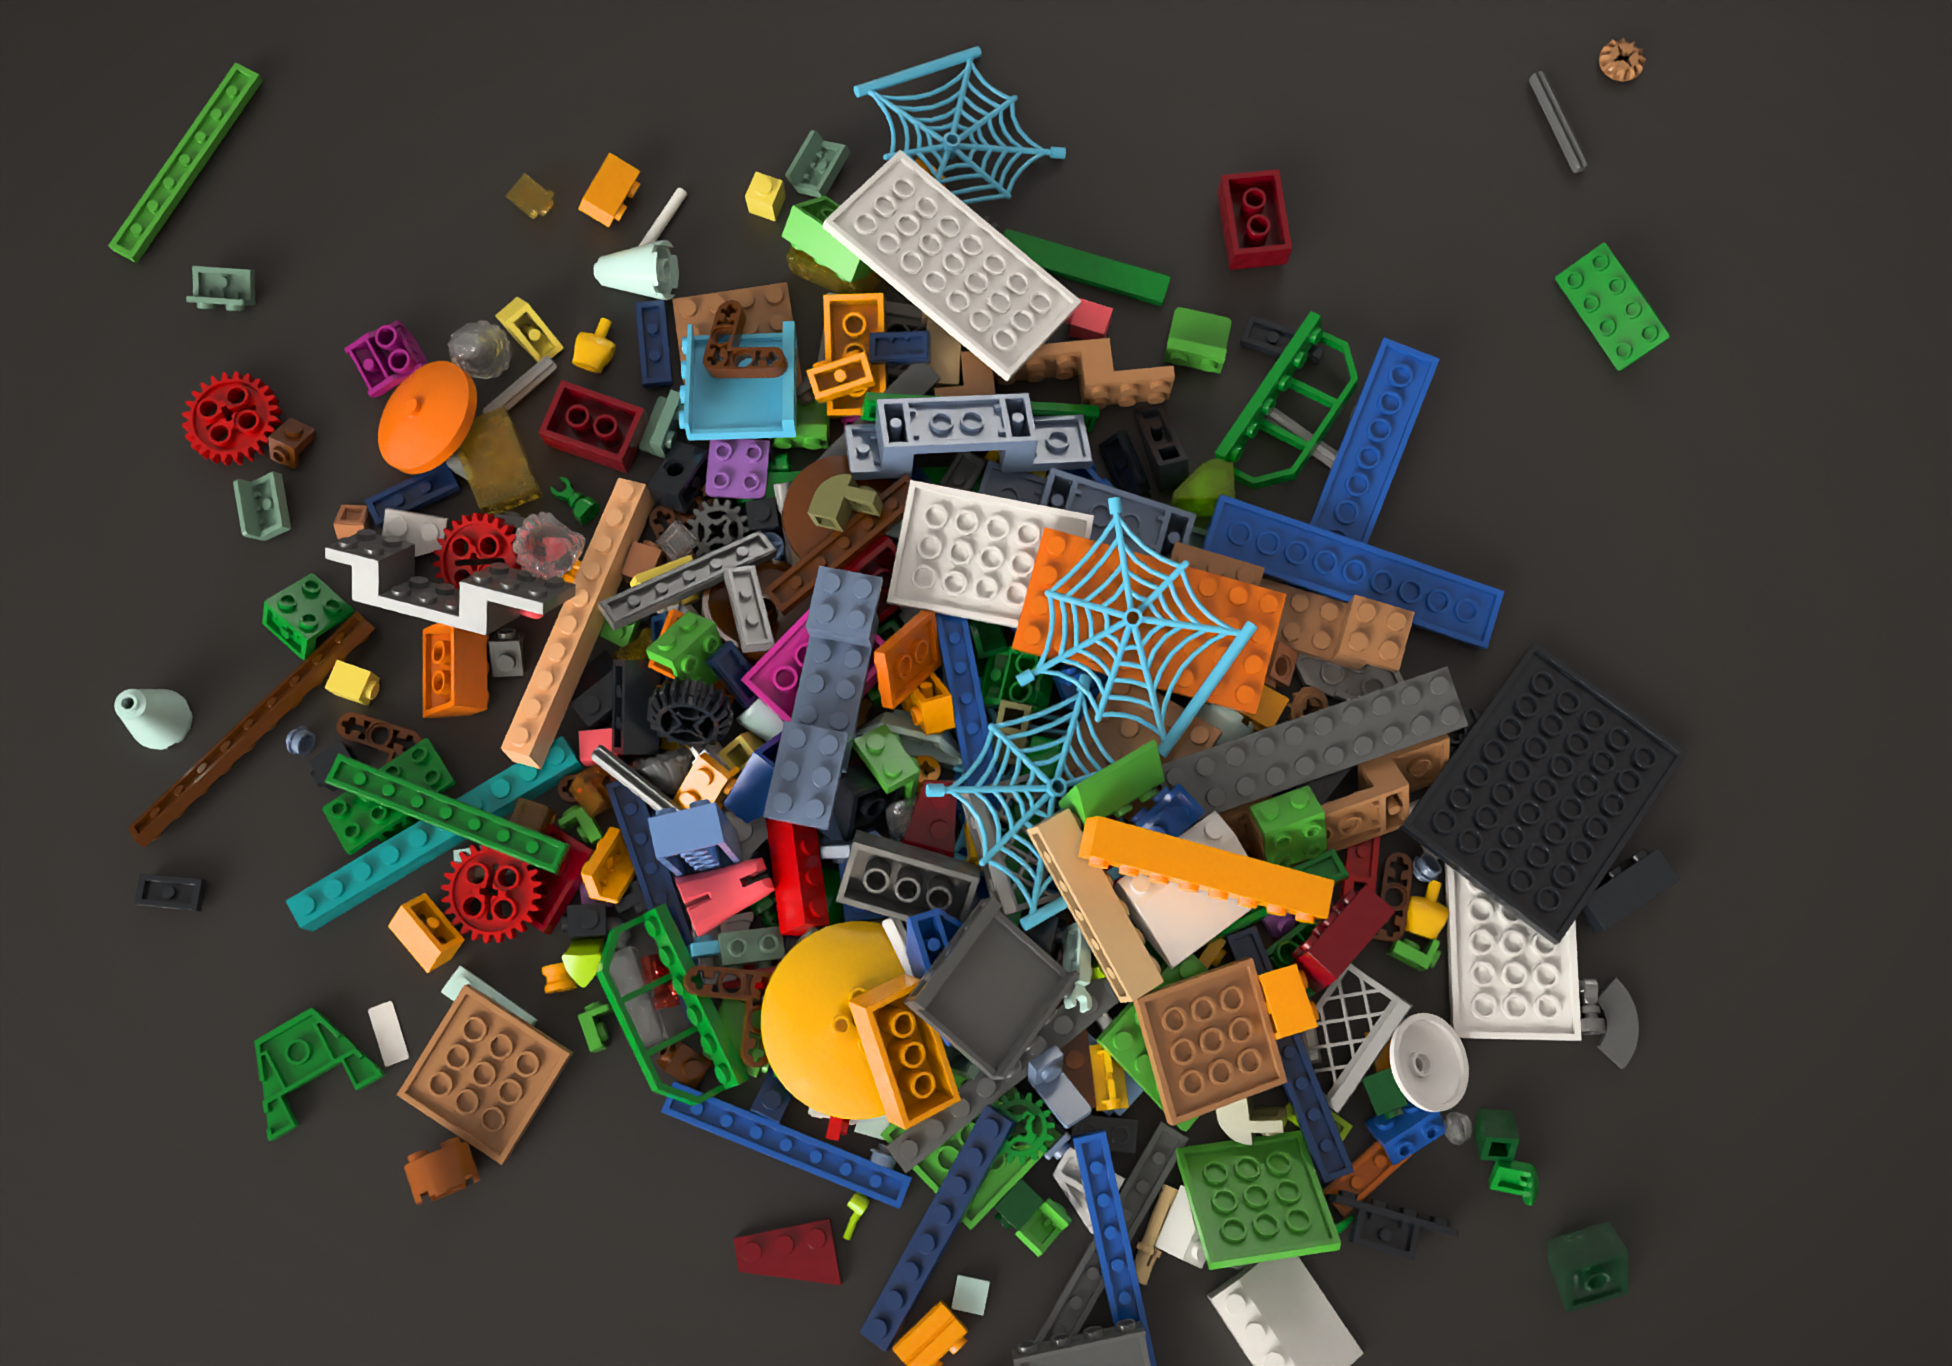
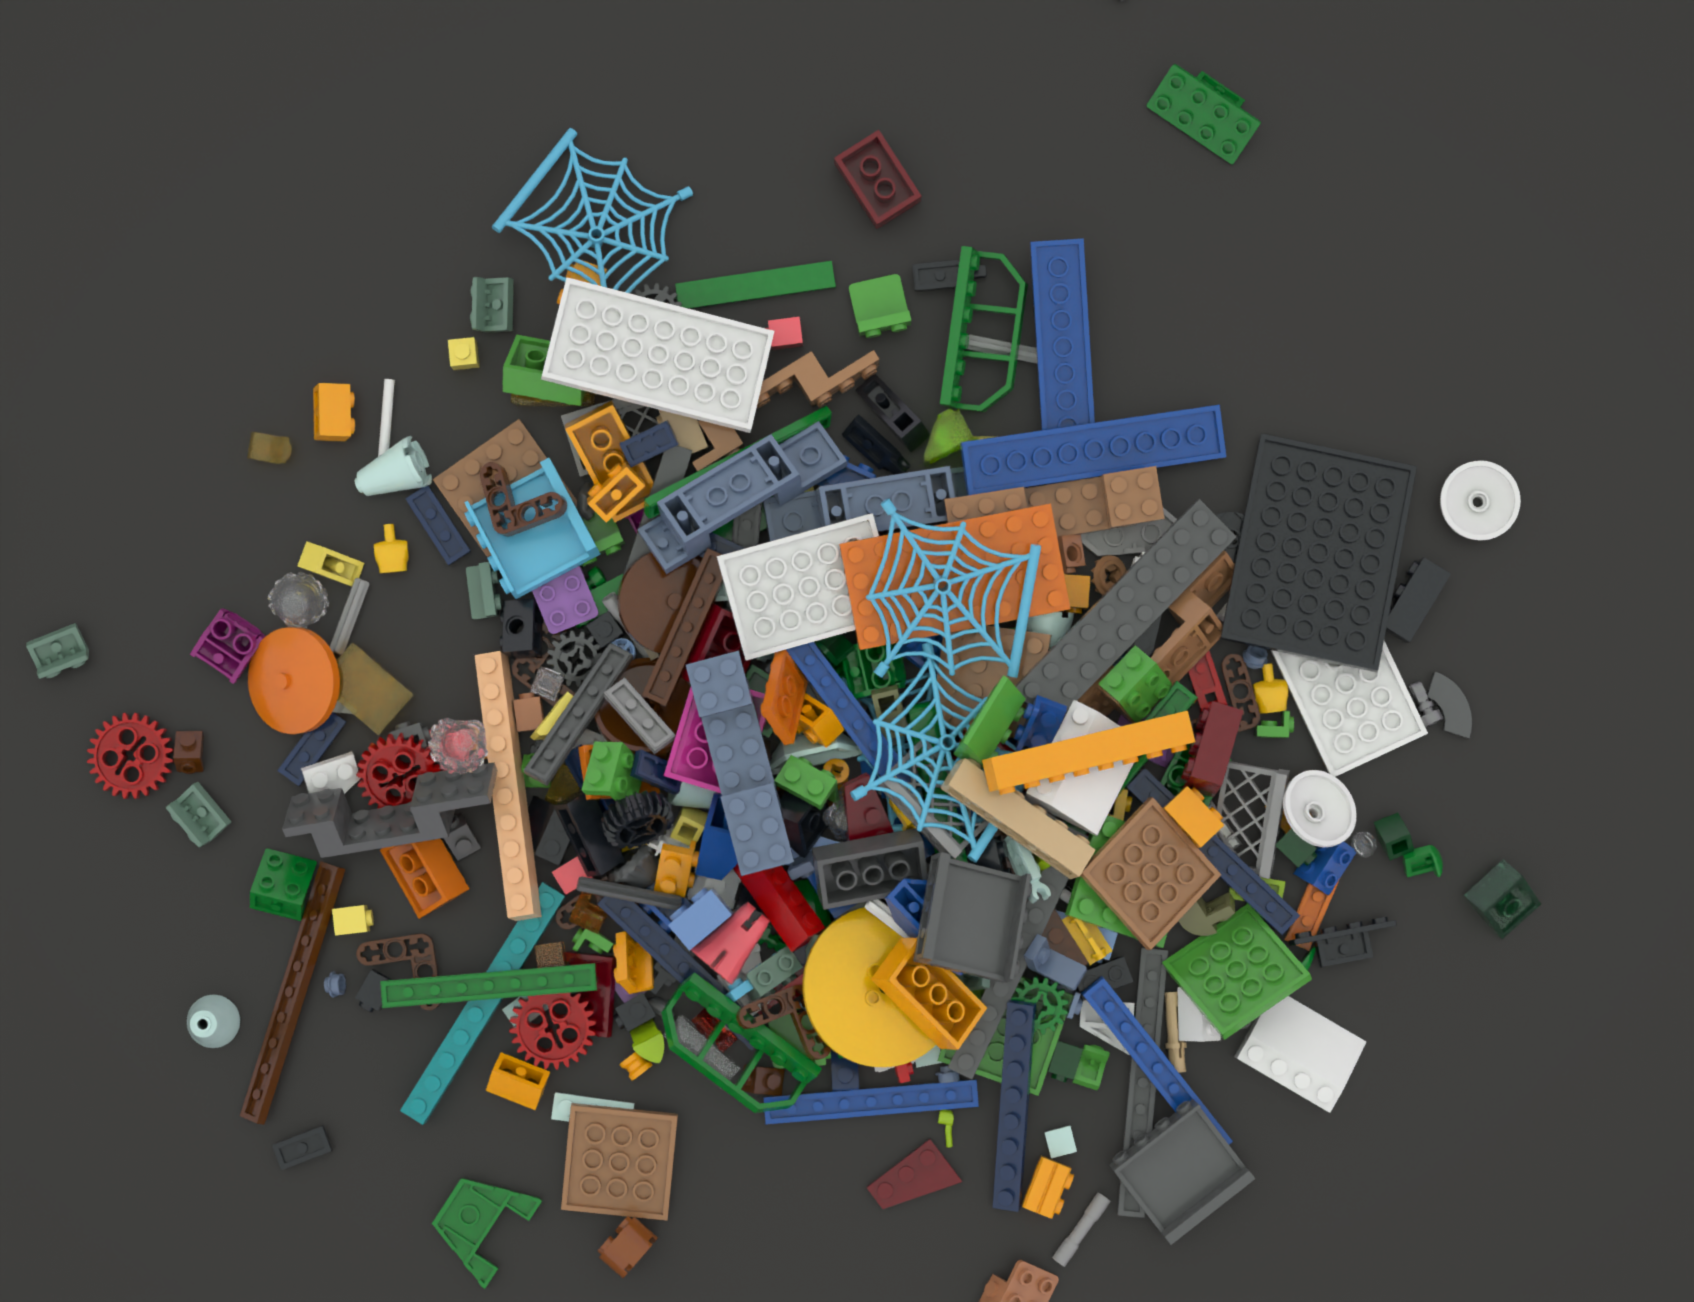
camera: 25 degrees left, 10 degrees up
(351, 519) = (275, 791): nougat slope -> none
(361, 820) = (423, 1023): green bracket -> none
(388, 1033) = (527, 1168): white sticker -> none
(583, 507) = (456, 689): green piece -> none
(594, 426) = (430, 621): dark red brick -> none
(595, 1031) = (683, 1090): bright green bracket -> none
(837, 499) = (664, 596): olive brick -> none
(1761, 813) = (1496, 491): none -> white dish

